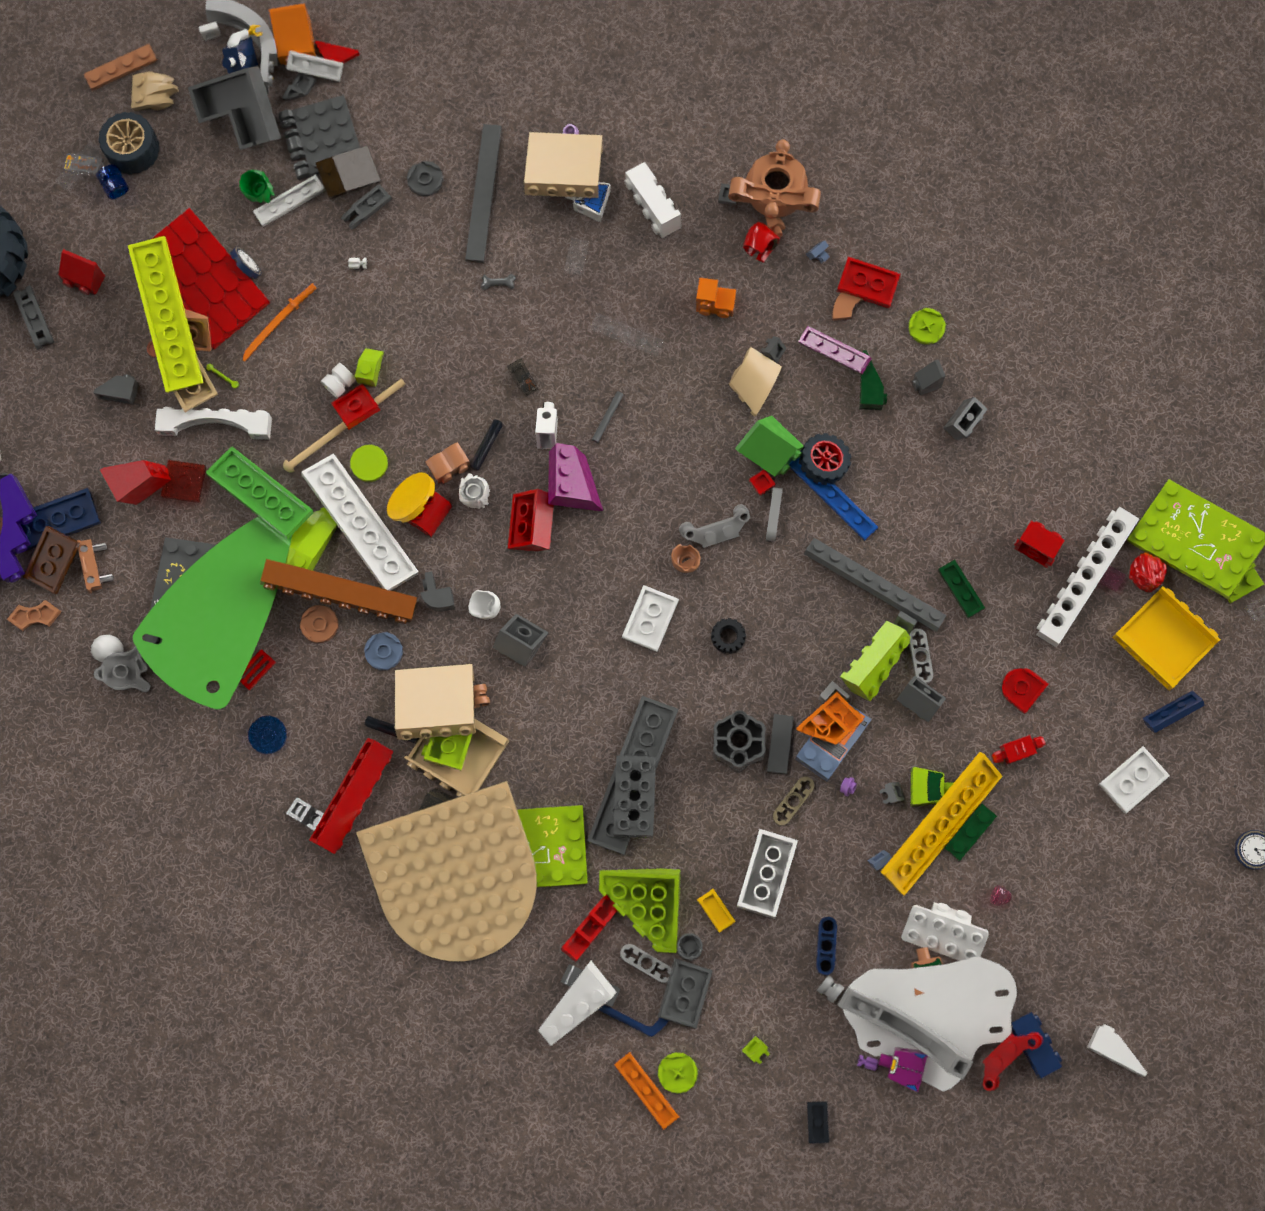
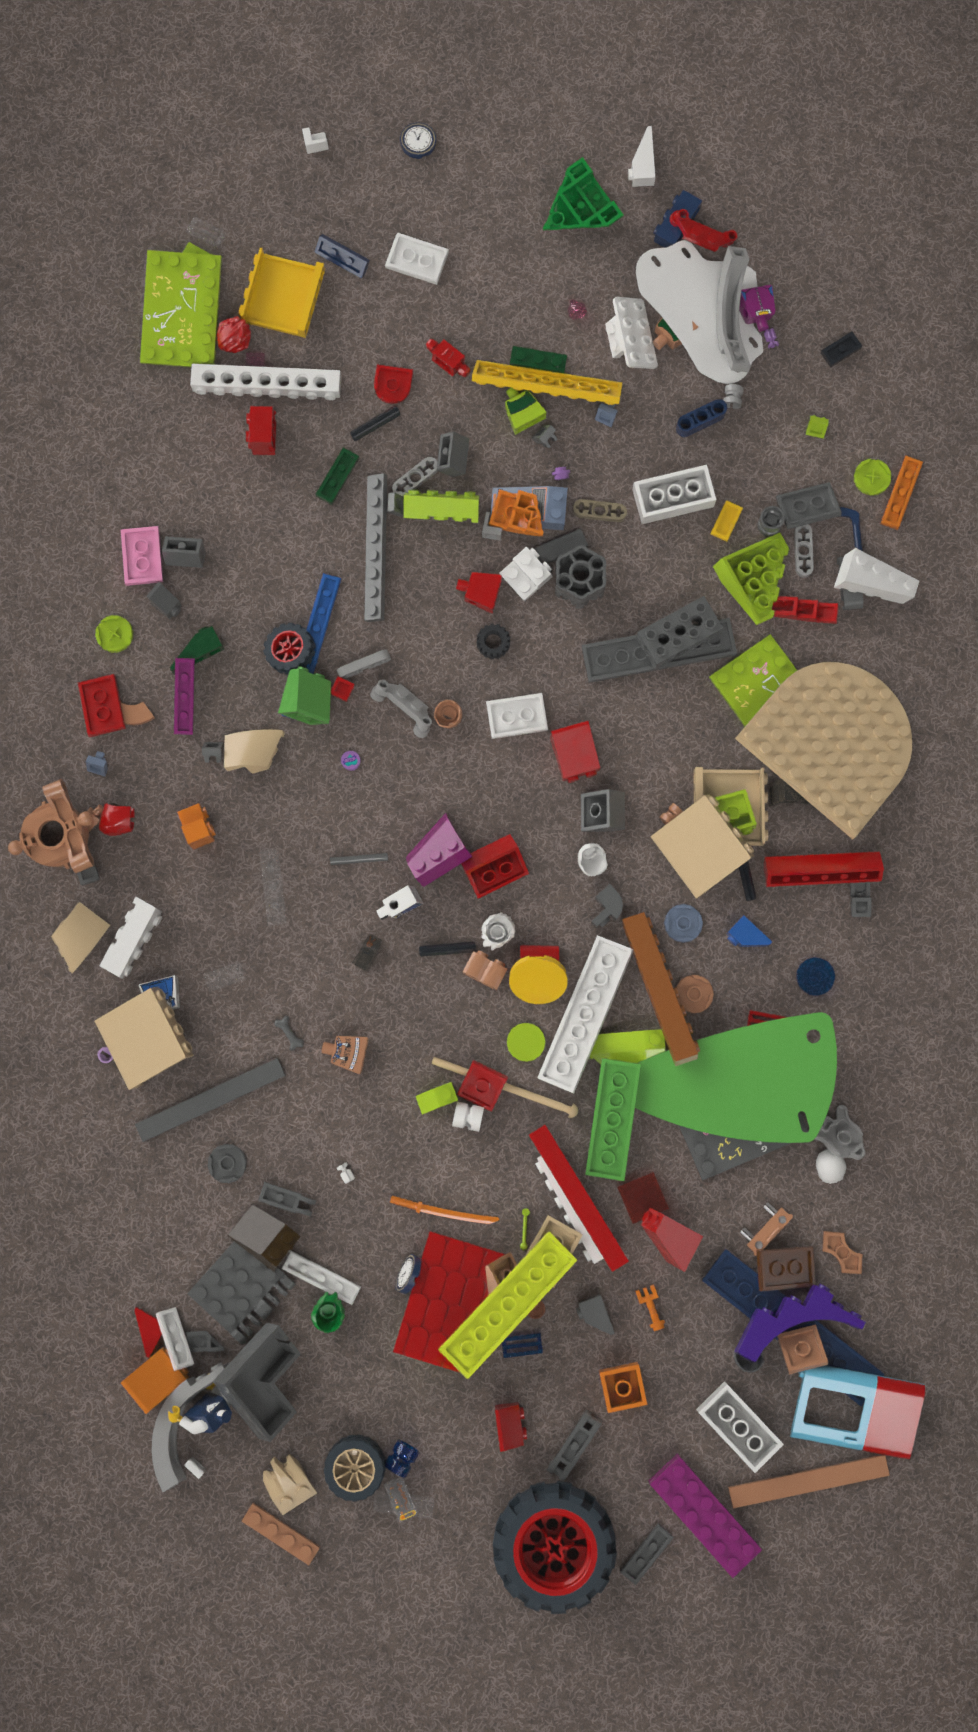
camera: 125 degrees left, 5 degrees up
(49, 375) = (622, 1387): none -> orange brick
(79, 433) = (648, 1299): none -> orange hinge
(134, 337) = (522, 1353): none -> clear blue tile
(215, 425) = (578, 1198): none -> red tile
(338, 696) = (747, 935): none -> blue slope
(451, 316) = (347, 1052): none -> nougat torso
(585, 645) = (575, 751): none -> red slope
(681, 161) = (78, 935): none -> tan slope
(696, 457) = (350, 760): none -> medium lavender tile
(772, 700) = (526, 573): none -> white plate
(780, 651) = (481, 590): none -> red torso
(984, 383) = (142, 555): none -> bright pink plate
(993, 650) = (375, 423): none -> black axle
(1102, 962) = (581, 202): none -> green wedge

